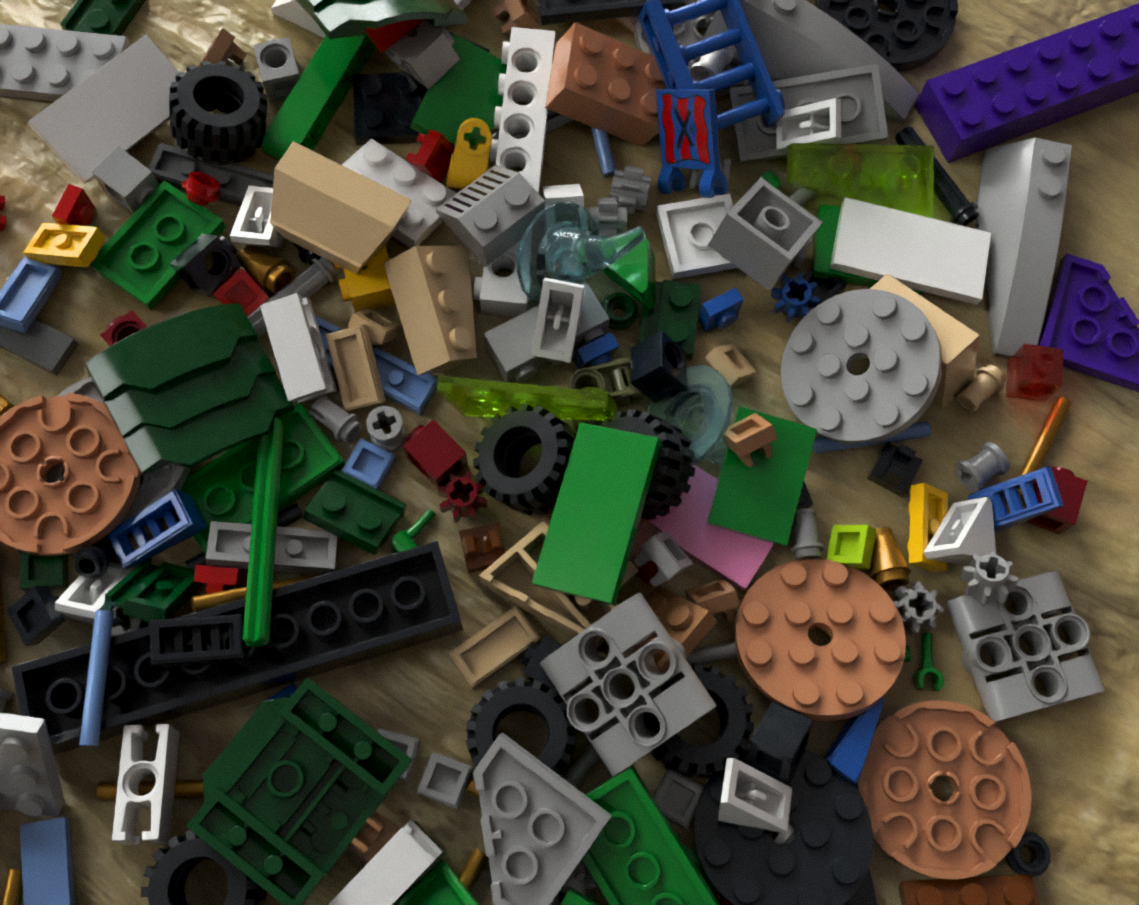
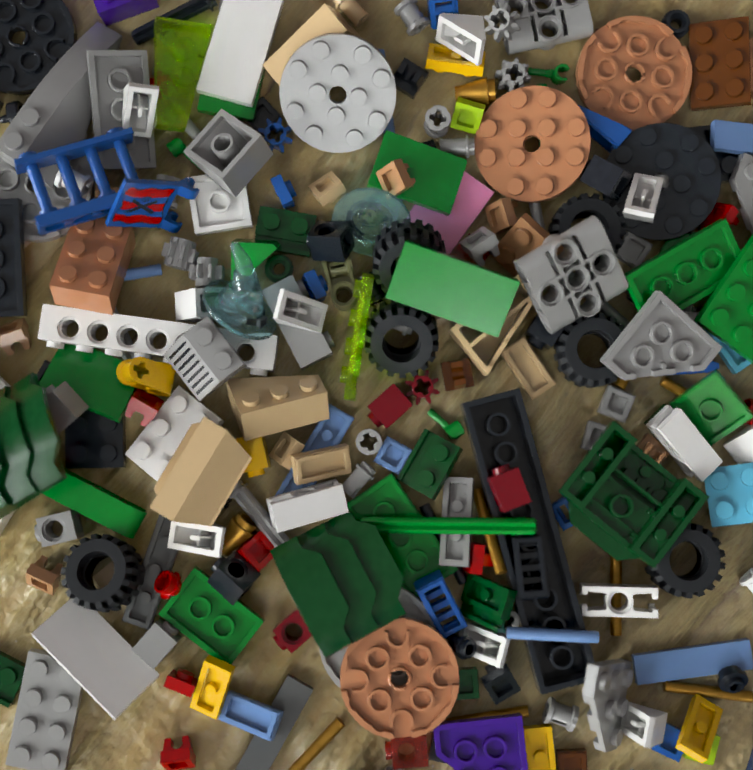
camera: 80 degrees left, 15 degrees up
(312, 602) = (508, 488): none -> dark red brick
(828, 511) = (431, 114): none -> light grey bush

